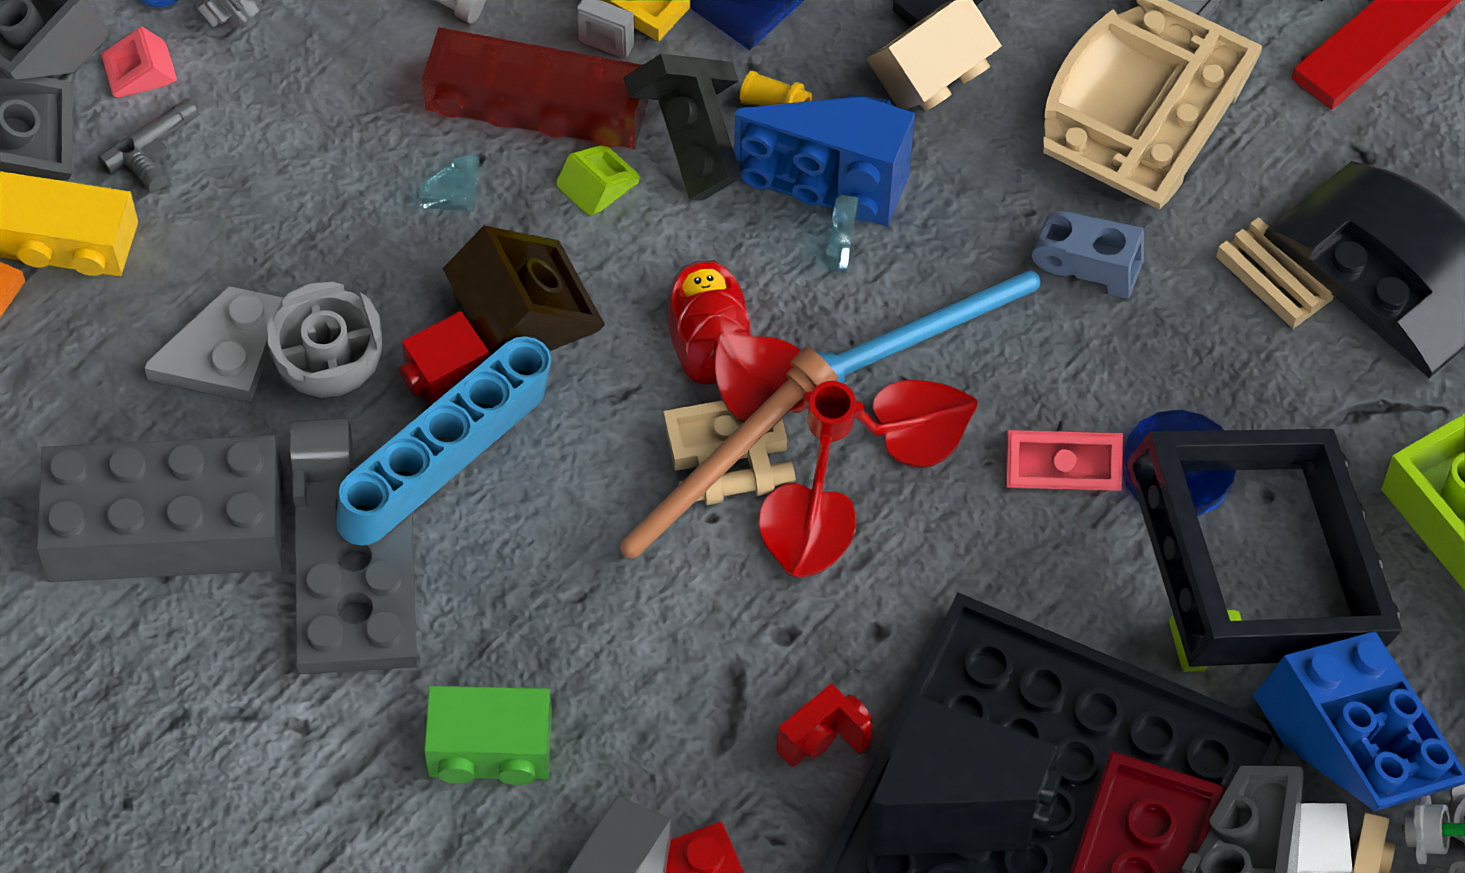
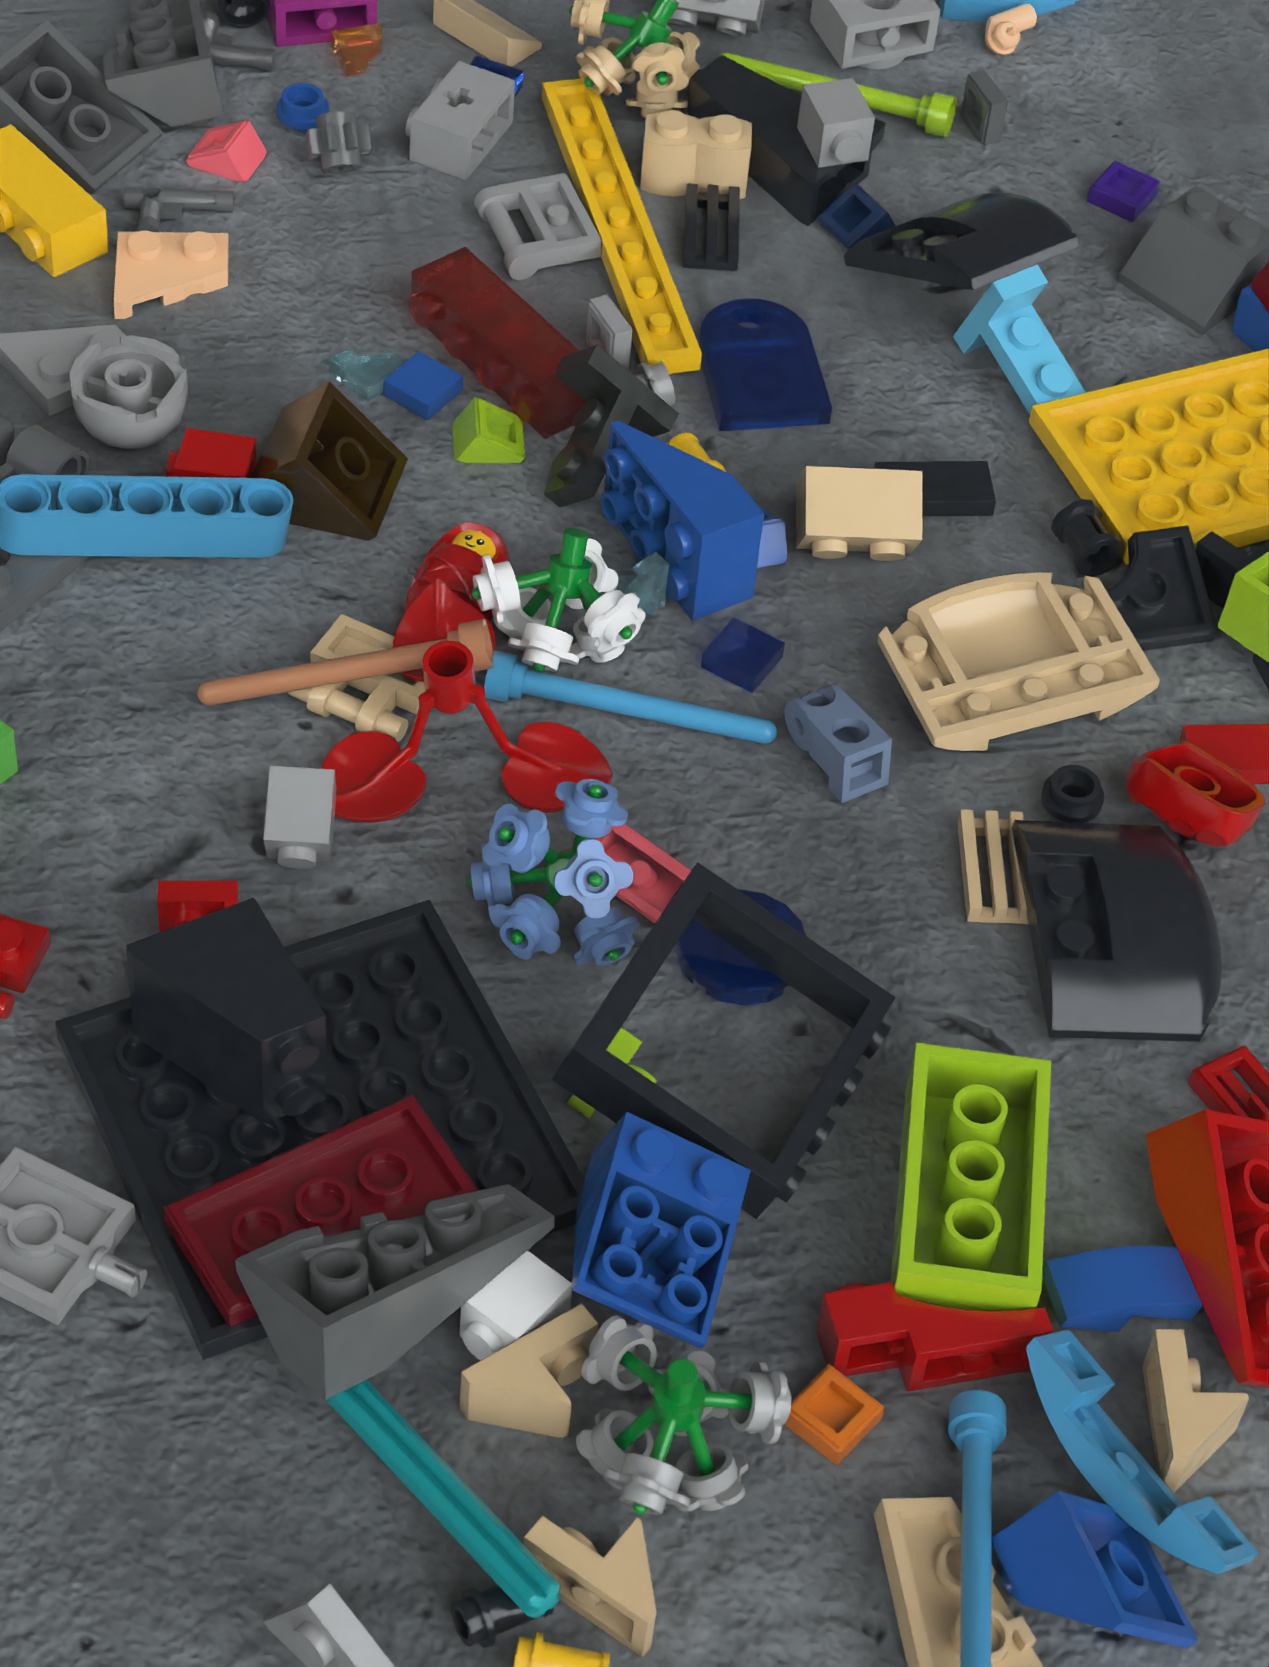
camera: 35 degrees right, 10 degrees down
(205, 205) = (167, 267): none -> light nougat wing
(507, 169) = (423, 385): none -> blue tile
(677, 41) = (658, 380): none -> light grey plate
(809, 598) = (300, 816): none -> light grey brick
(844, 284) = (574, 579): none -> white plant
(955, 230) = (742, 655): none -> clear blue tile
(1027, 499) = (584, 872): none -> medium blue plant
(1274, 166) = (1073, 794): none -> black plate
(1357, 119) = (1194, 794): none -> red piece

